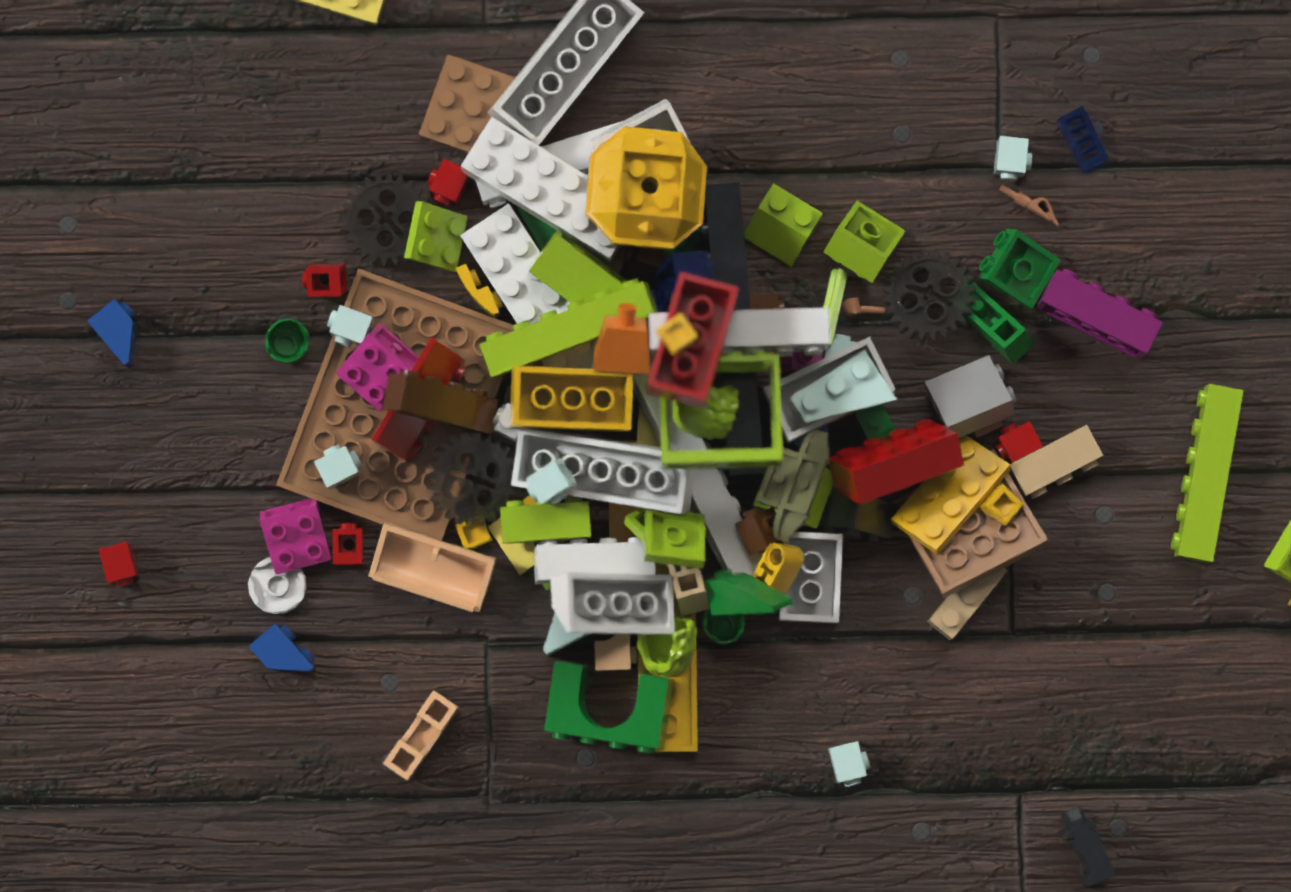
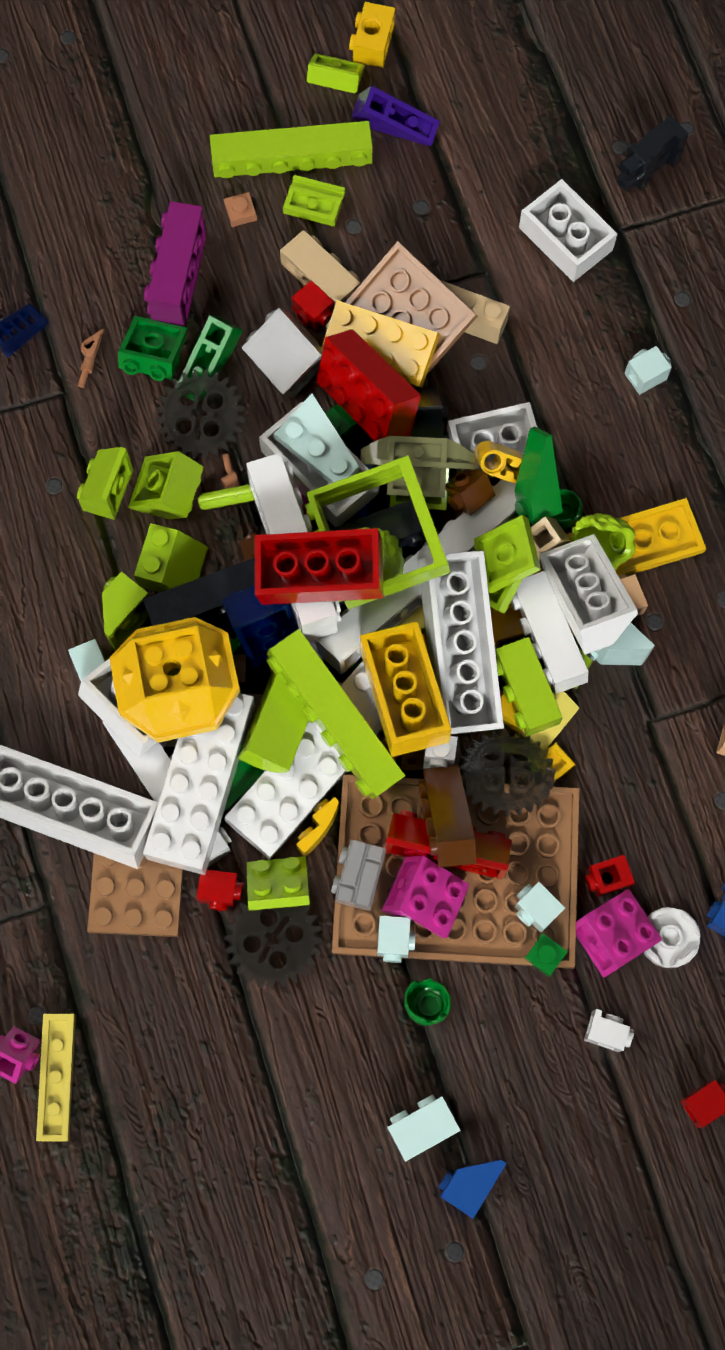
camera: 110 degrees left, 10 degrees down
(179, 303) = (423, 1127): none -> light aqua brick
(209, 497) = (608, 1031): none -> white brick
(294, 461) = (546, 955): none -> green plate
(315, 285) = (360, 975): red brick -> none
(417, 311) = (359, 875): none -> light grey brick
(432, 568) = (605, 788): light nougat container -> none
(550, 483) = (492, 683): light aqua brick -> none
(569, 715) = (688, 546): green arch -> none
(623, 343) = (337, 650): orange torso -> none
(677, 334) = (320, 574): yellow tile -> none
(701, 121) = (86, 658): none -> light aqua brick
(743, 163) = (122, 609): none -> lime slope
(883, 182) = (106, 482): none -> lime slope
(1001, 504) = (376, 294): yellow slope -> none
(1012, 158) = (51, 381): light aqua brick -> none
(1026, 730) = (567, 230): none -> white brick
(1142, 480) = (314, 200): none -> lime plate
(1156, 402) = (240, 209): none -> nougat plate
(1214, 594) = (394, 117): none -> dark purple slope

